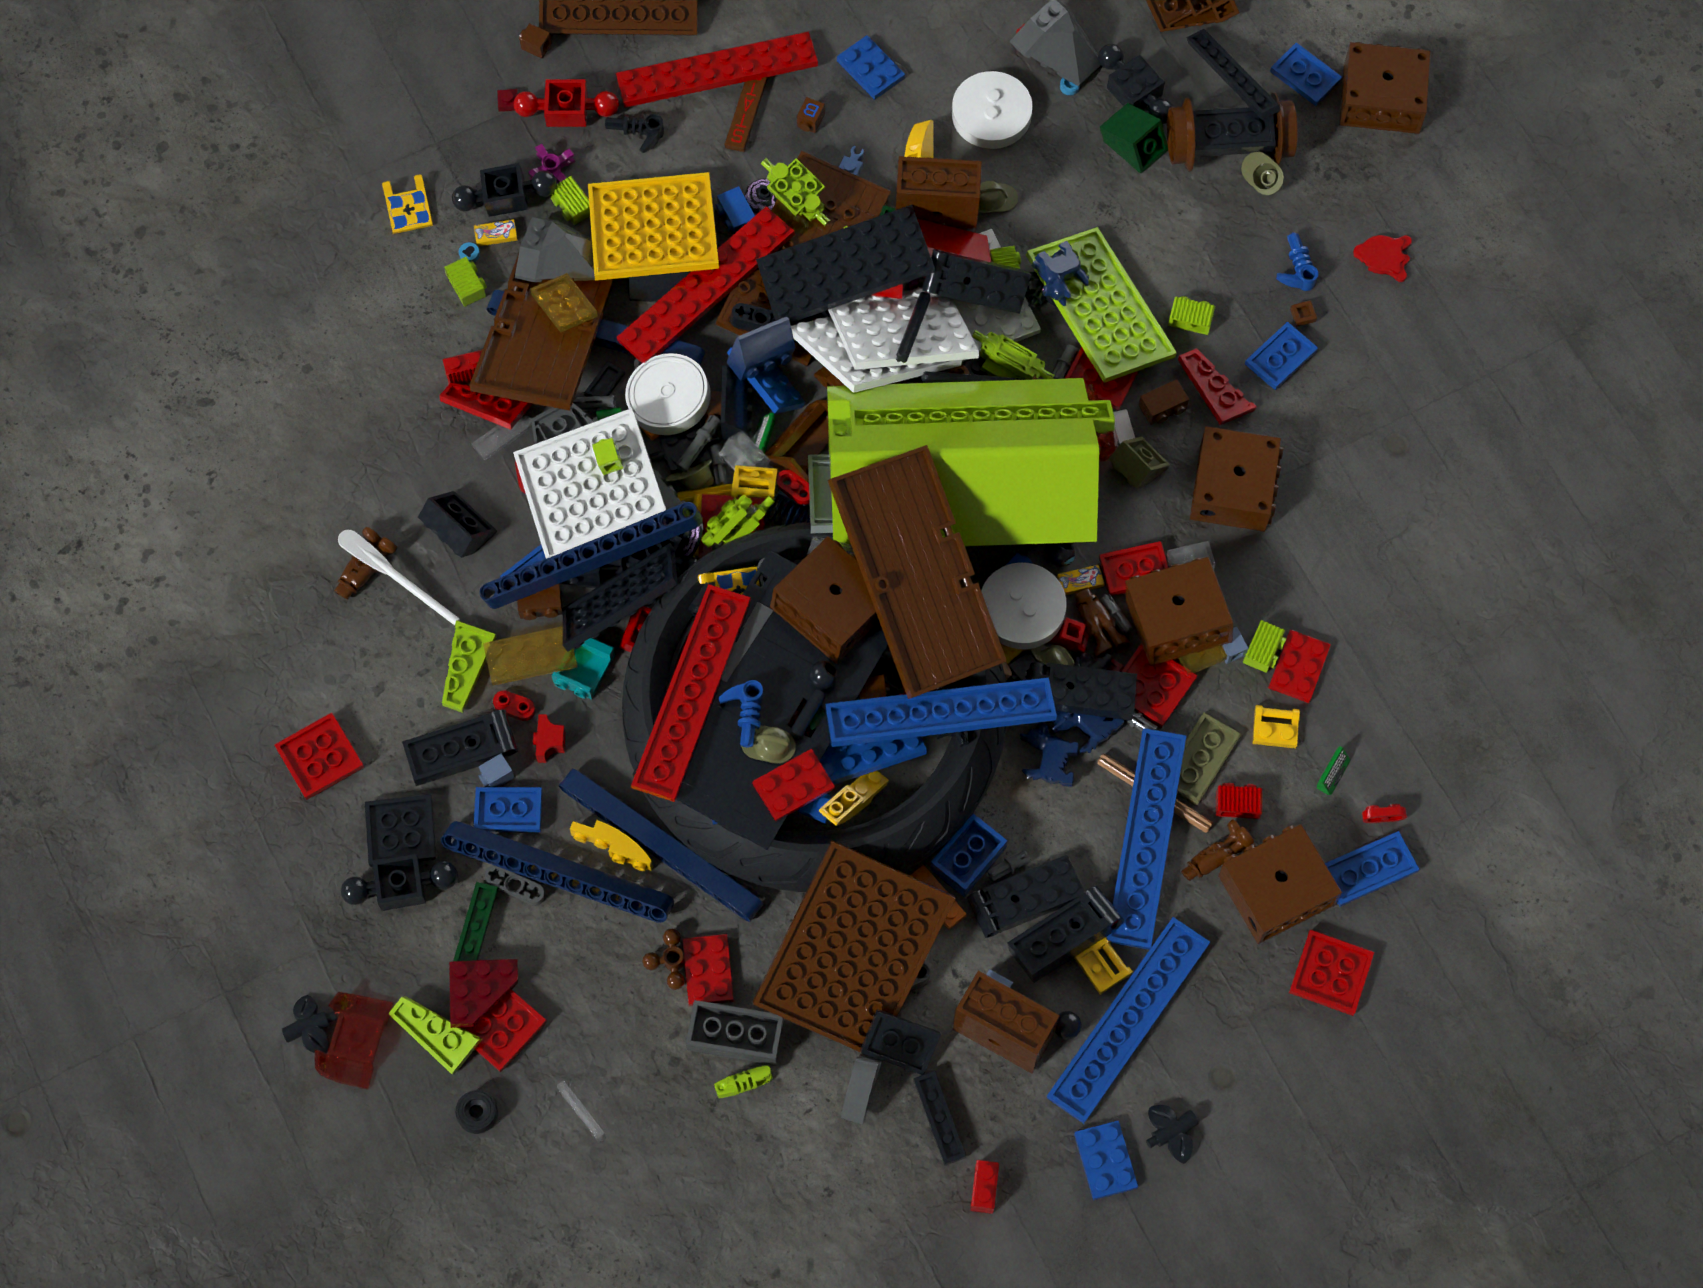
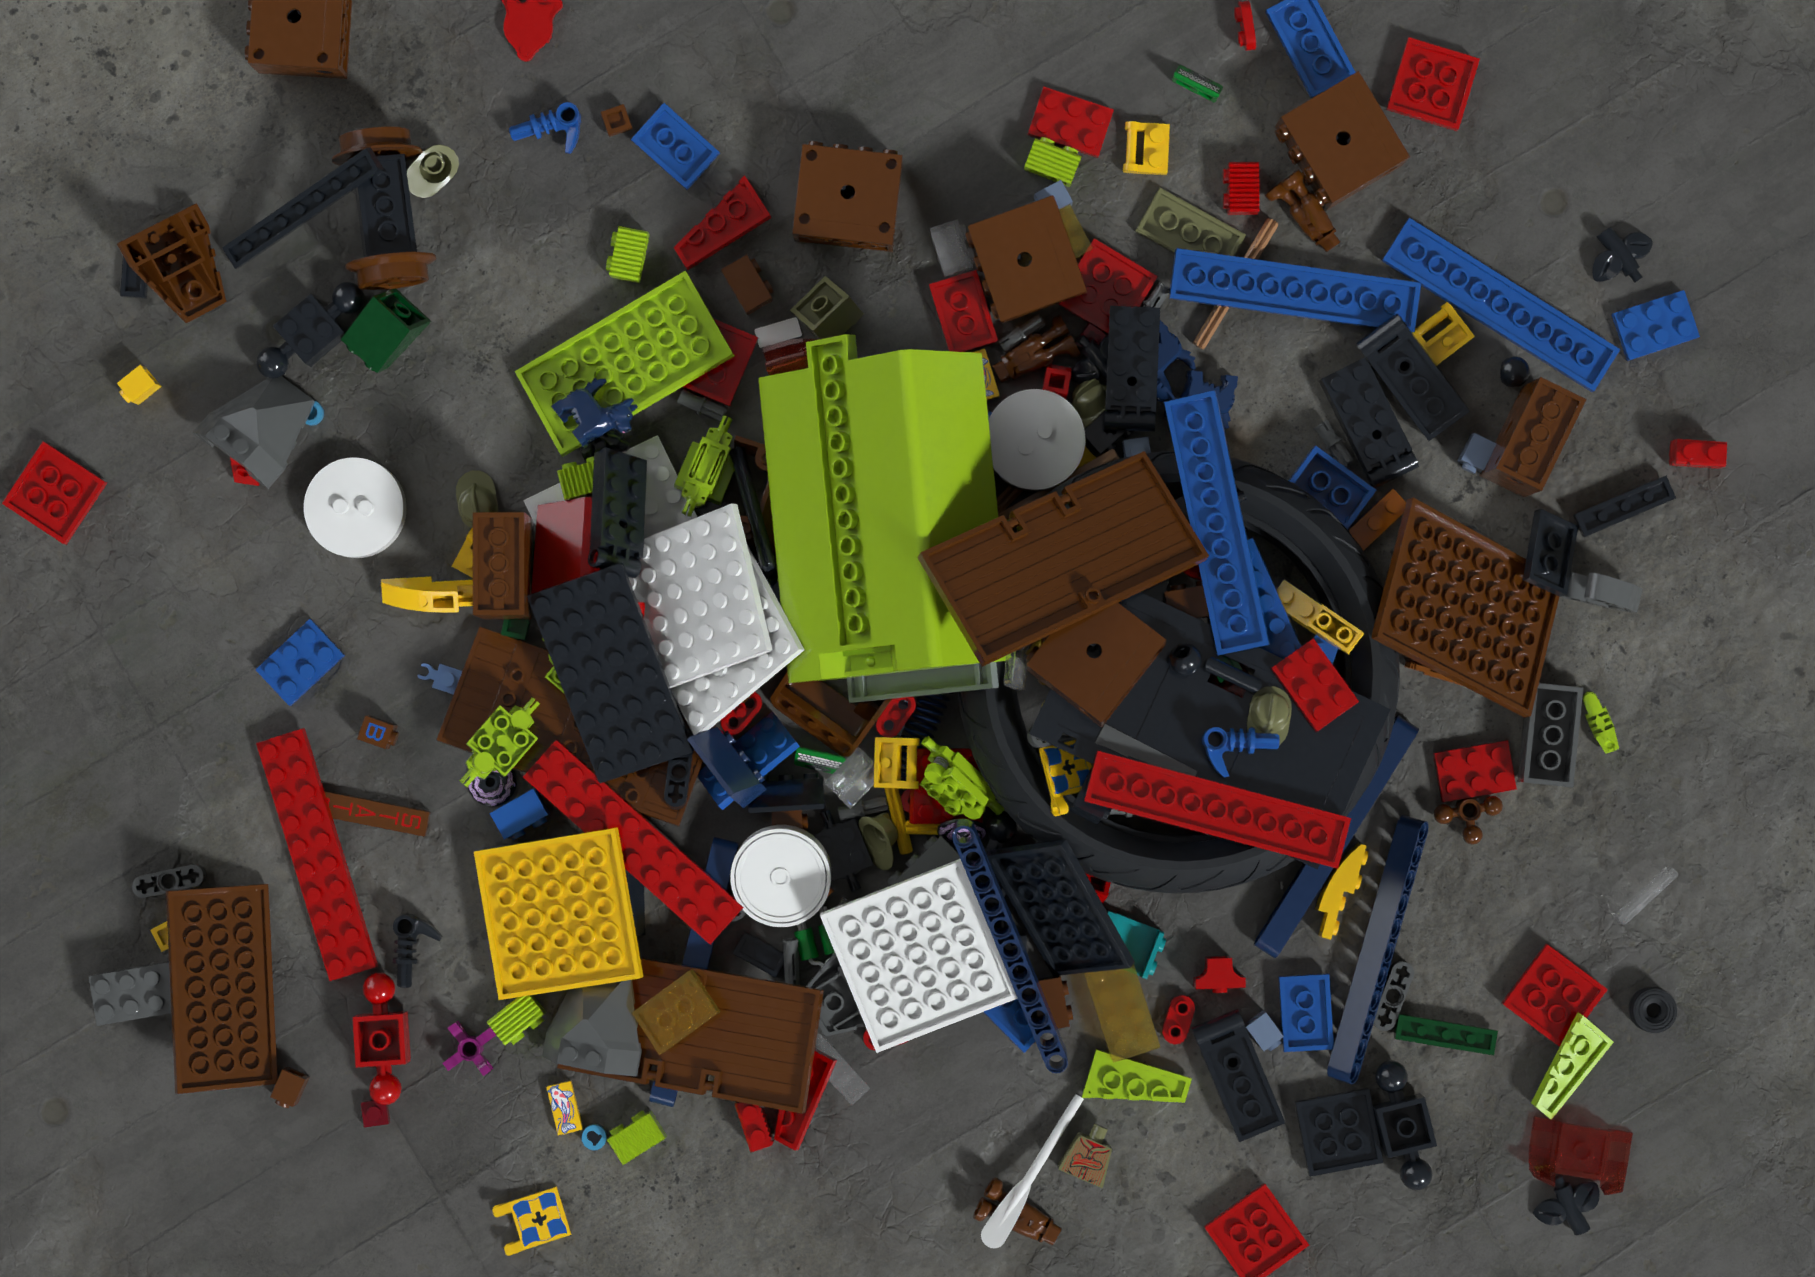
camera: 90 degrees left, 20 degrees up
(404, 623) = (1088, 1156): none -> olive torso
(456, 523) = (958, 1110): black slope -> none
(478, 988) = (1521, 1023): dark red plate -> none
(504, 190) = (511, 1102): black brick -> none
(607, 456) = (888, 938): lime brick -> none
(703, 436) = (841, 833): dark grey pin -> none
(807, 378) = (743, 715): none -> red plate
(913, 327) = (703, 584): black axle -> none
(1306, 74) = (280, 119): blue plate -> none

